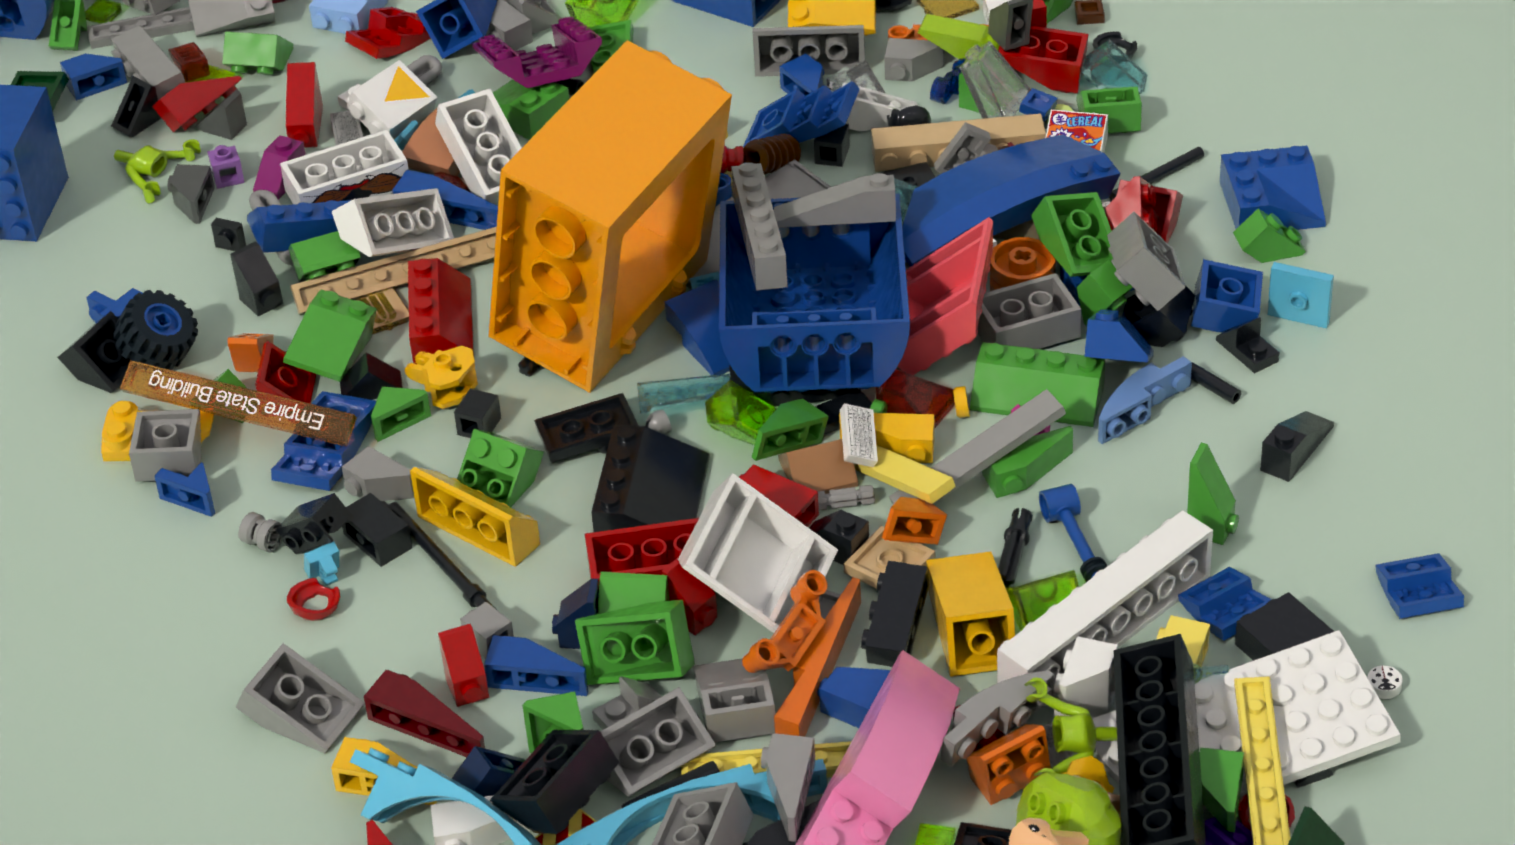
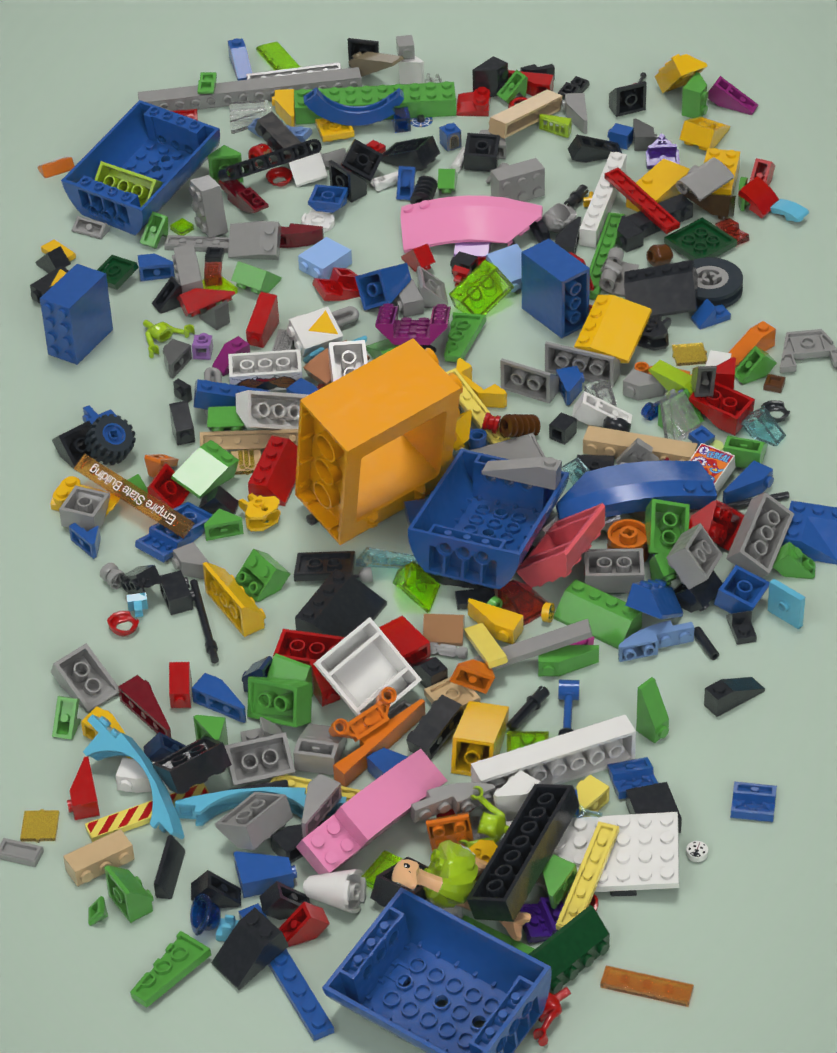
camera: 20 degrees right, 0 degrees up
(173, 36) = (214, 254): none -> black tile
(300, 770) = (66, 718): none -> bright green slope
(477, 411) = (267, 539): black brick -> none
(485, 623) = (205, 664): light grey brick -> none
(750, 87) = (528, 381): none -> light grey slope
(759, 226) = (467, 471): light grey brick -> none
(790, 428) = (434, 600): bright green slope -> none
(805, 115) = (553, 406): blue slope -> none
(858, 435) = (470, 615): white tile -> none
(1142, 147) = (749, 483): none -> blue slope
(1211, 209) = (760, 535): none -> light grey brick

